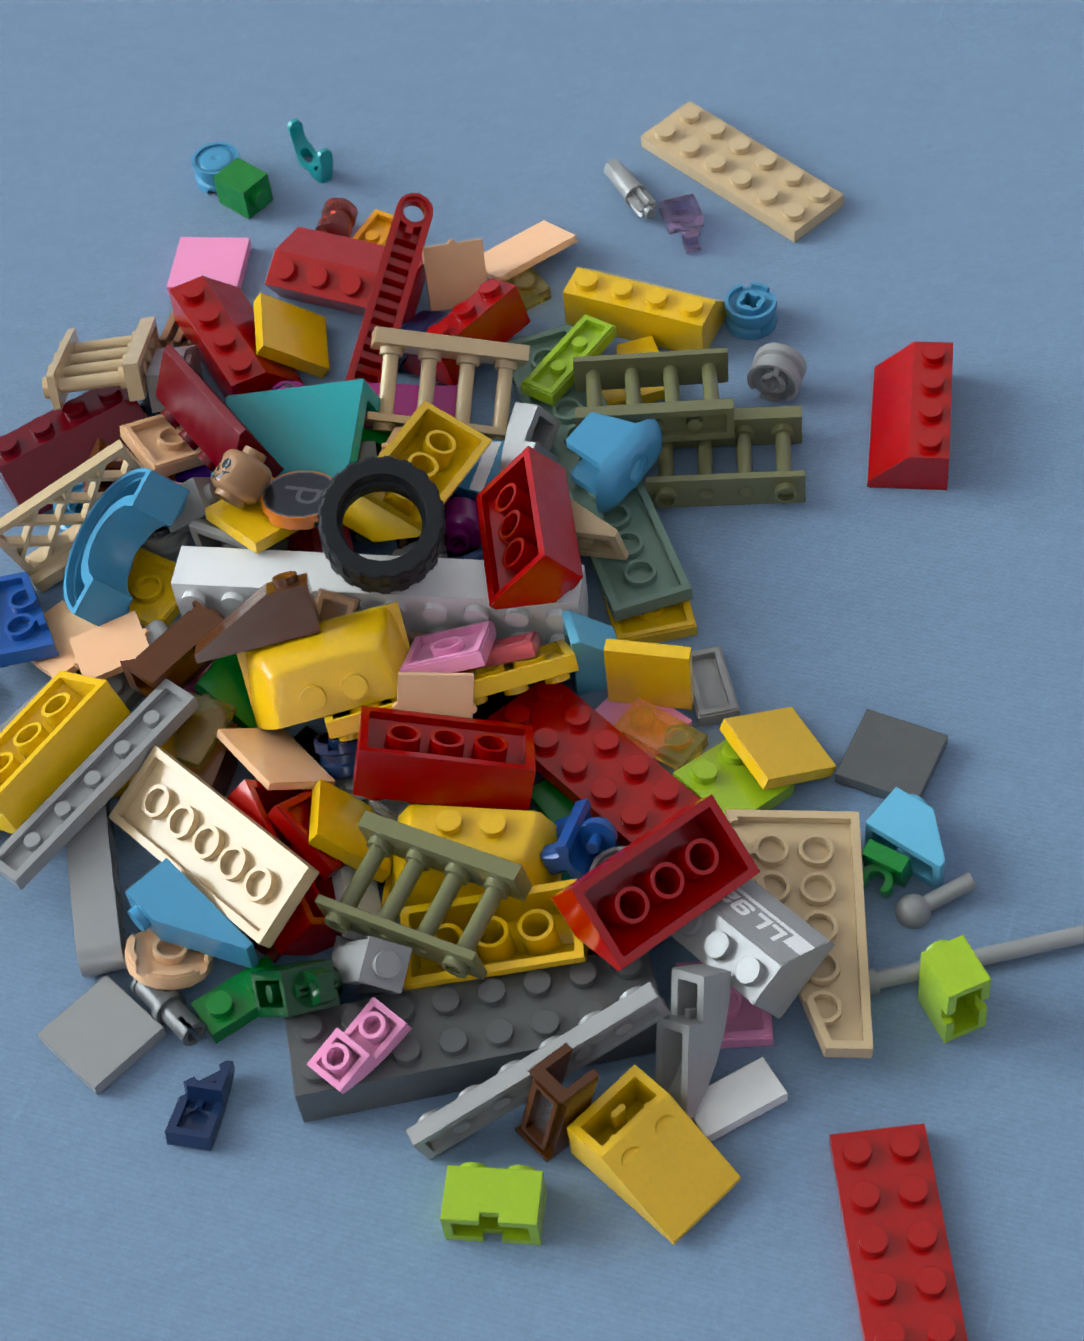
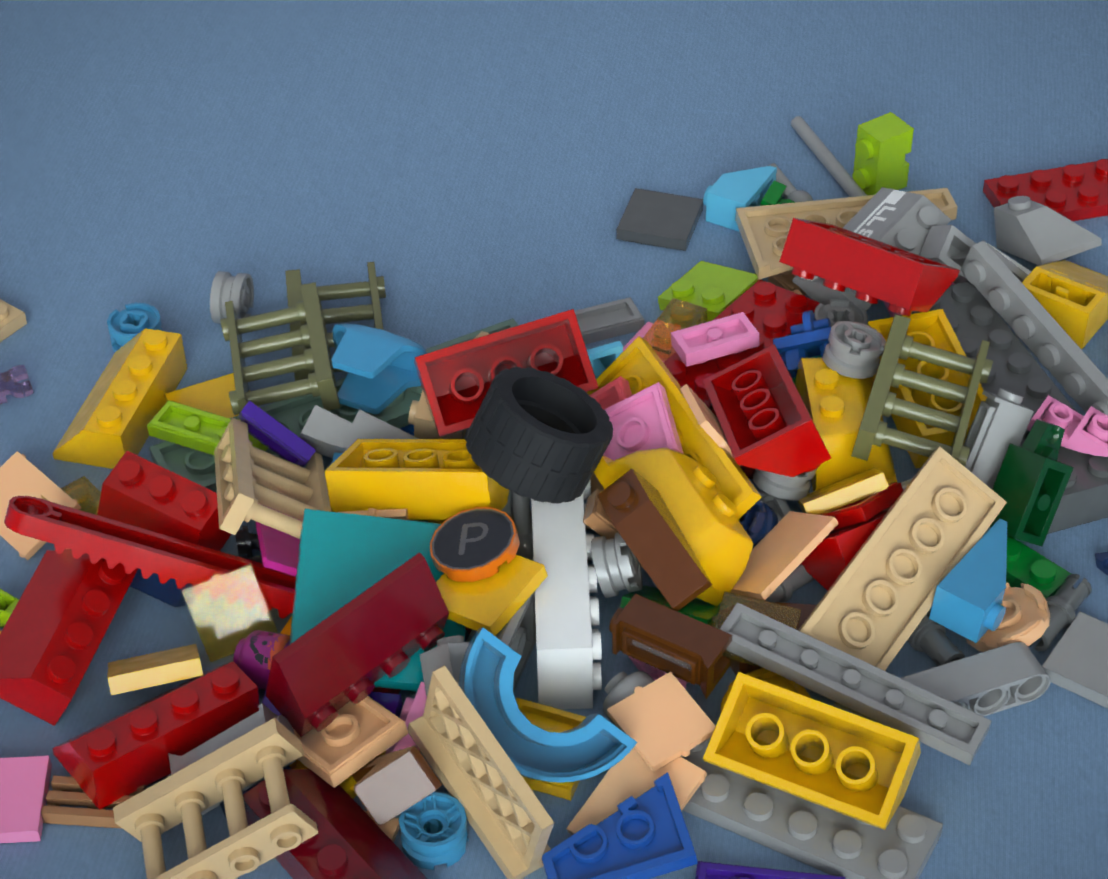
camera: 105 degrees left, 10 degrees down
(241, 477) = (464, 576): medium nougat head -> none
(338, 364) = (228, 610): none -> clear yellow piece
(524, 829) = (854, 349): none -> light grey wheel
(529, 382) = (275, 435): none -> dark purple tile
(551, 1106) = (1072, 307): reddish brown window -> none
(592, 742) = (715, 339): none -> bright pink plate
(649, 671) = (629, 303): yellow tile -> none
(777, 748) = (672, 266): yellow tile -> none
(779, 1152) = (1039, 232): none -> light grey slope
(912, 418) = (285, 220): red slope -> none

